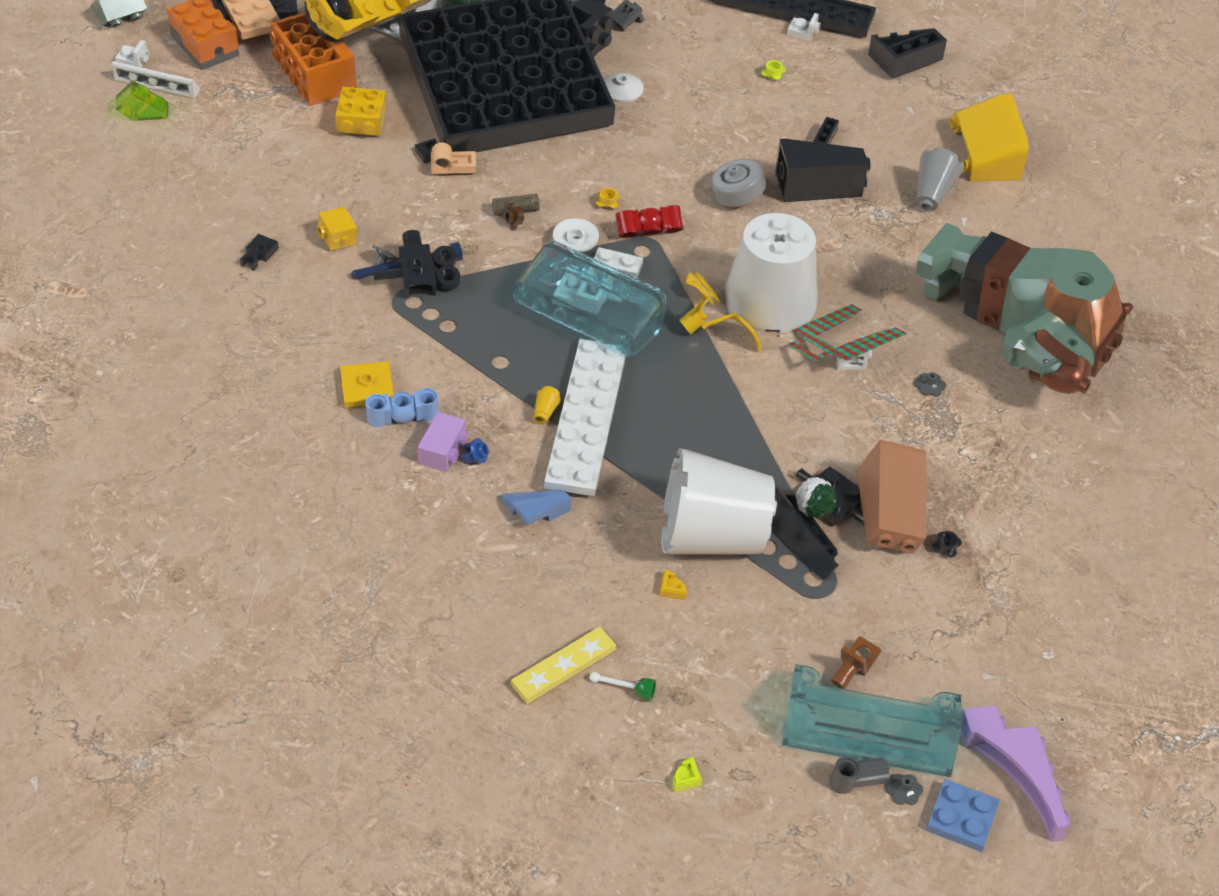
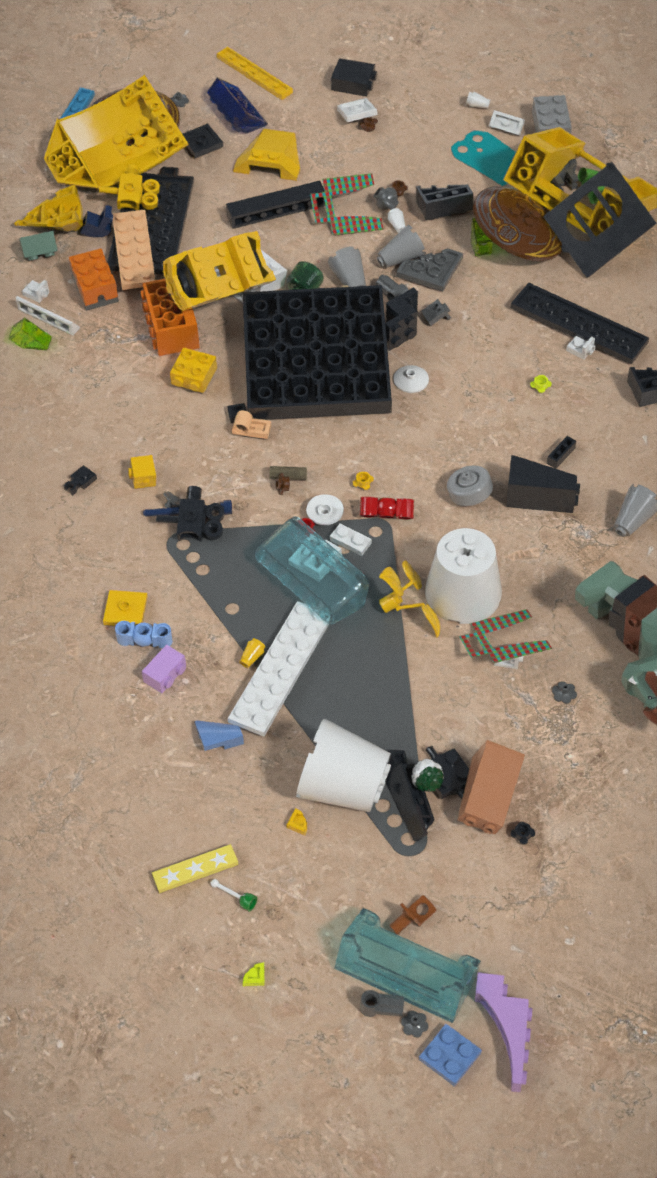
camera: 20 degrees right, 5 degrees up
(477, 451) = (188, 682): blue plate -> none

